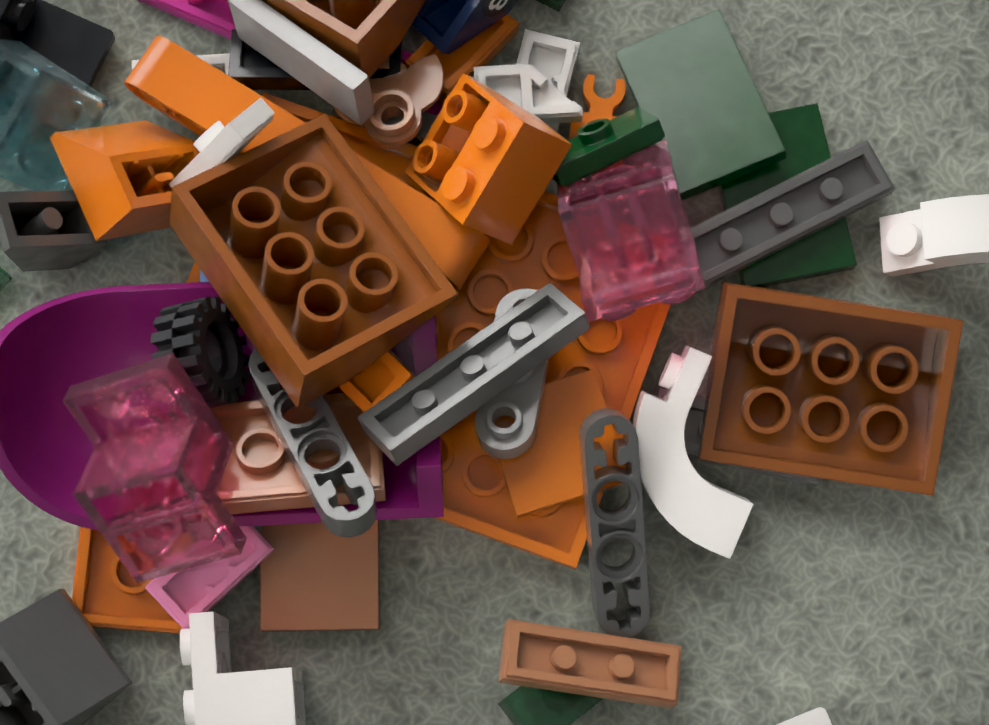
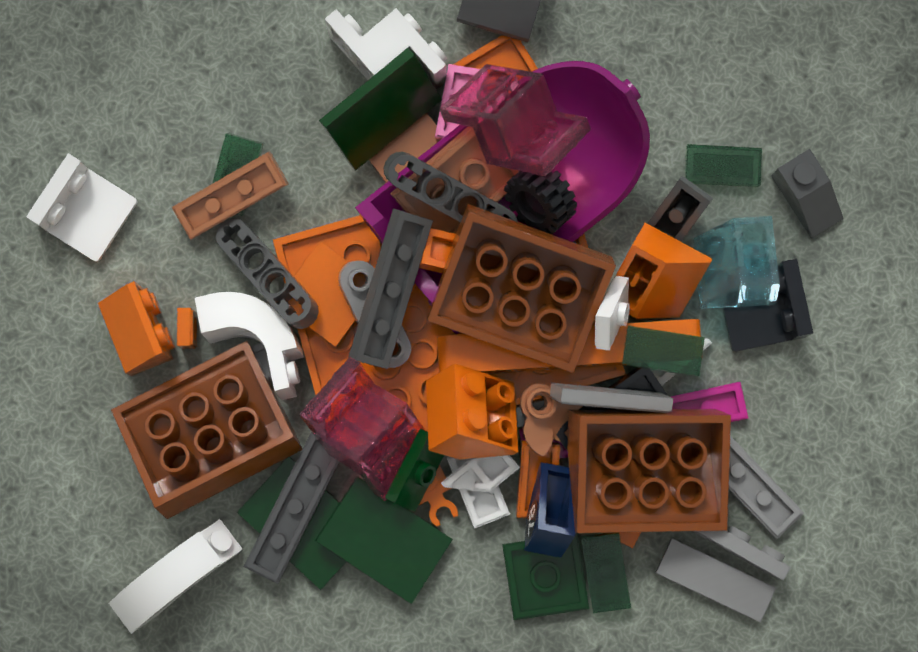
camera: 145 degrees right, 5 degrees up
(196, 65) = (663, 351): none -> clear green tile
(315, 626) = (381, 109): none -> dark green tile
(764, 533) = (186, 328): none -> orange tile
(832, 573) = (135, 328): none -> orange slope

